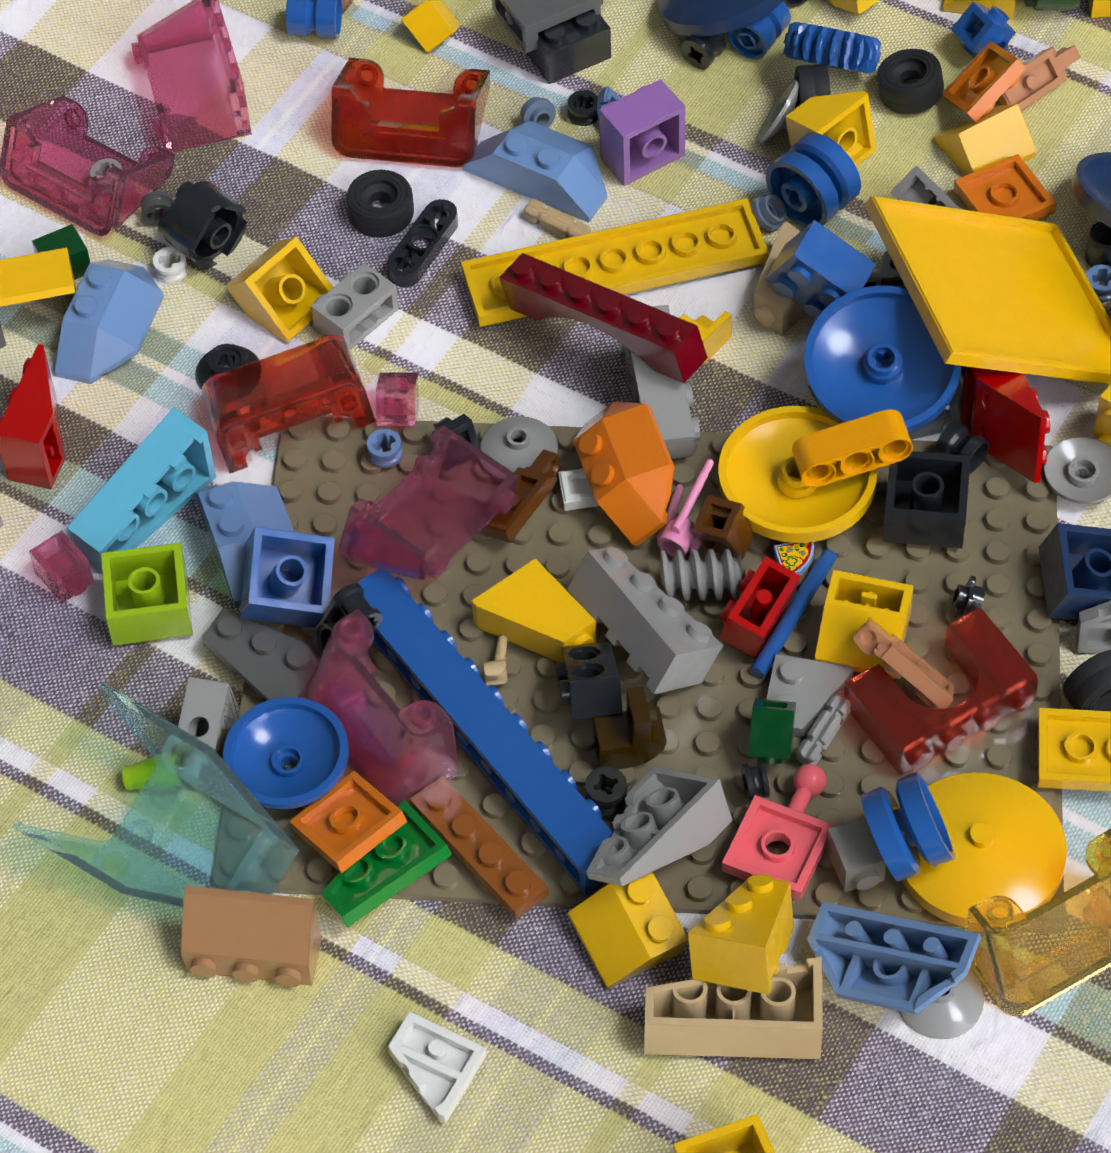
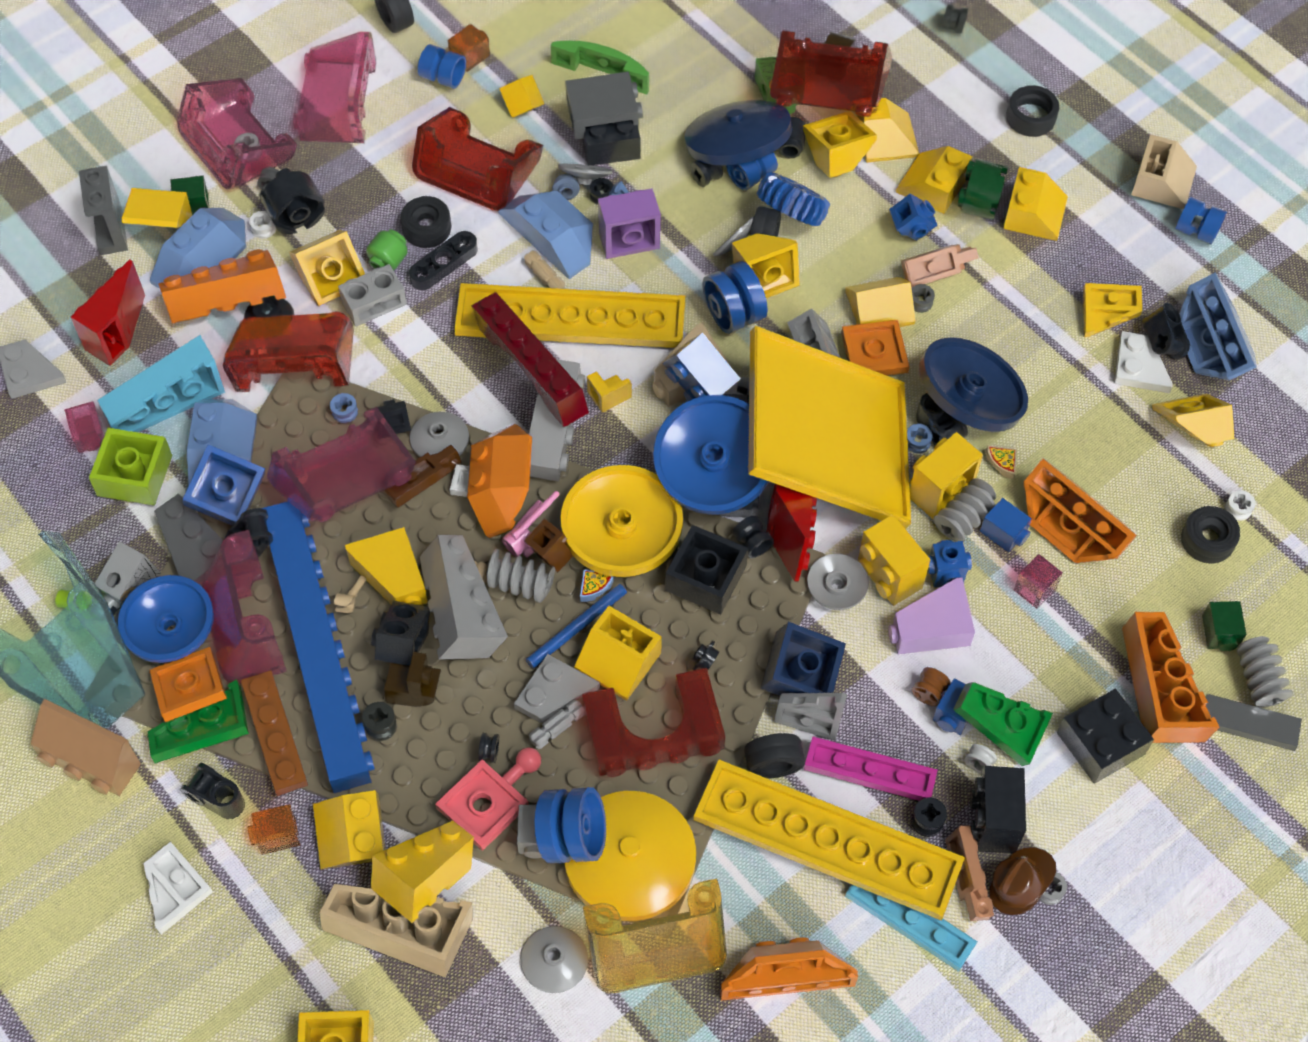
camera: 15 degrees right, 5 degrees up
(163, 348) = (222, 286): none -> orange wedge
(348, 248) = (386, 249): none -> bright green head
(397, 399) = (368, 373): clear pink brick -> none
(427, 938) = (210, 788): none -> black piece
(532, 957) = (274, 829): none -> clear orange brick
(556, 91) = (584, 173): none -> light grey dish
(663, 821) = (407, 760): light grey wedge -> none
(759, 606) = (548, 614): red brick -> none
(769, 211) = (697, 310): sand blue plate -> none
(772, 730) = (515, 713): dark green brick -> none
(852, 448) = (662, 515): light orange beam -> none
(889, 957) = (519, 920): medium blue wedge -> none
(906, 663) = (633, 695): nougat hinge -> none
(908, 65) = (844, 227): black tyre -> none
(984, 81) = (893, 257): orange plate -> none
(1036, 115) = (927, 292): none -> dark grey bush

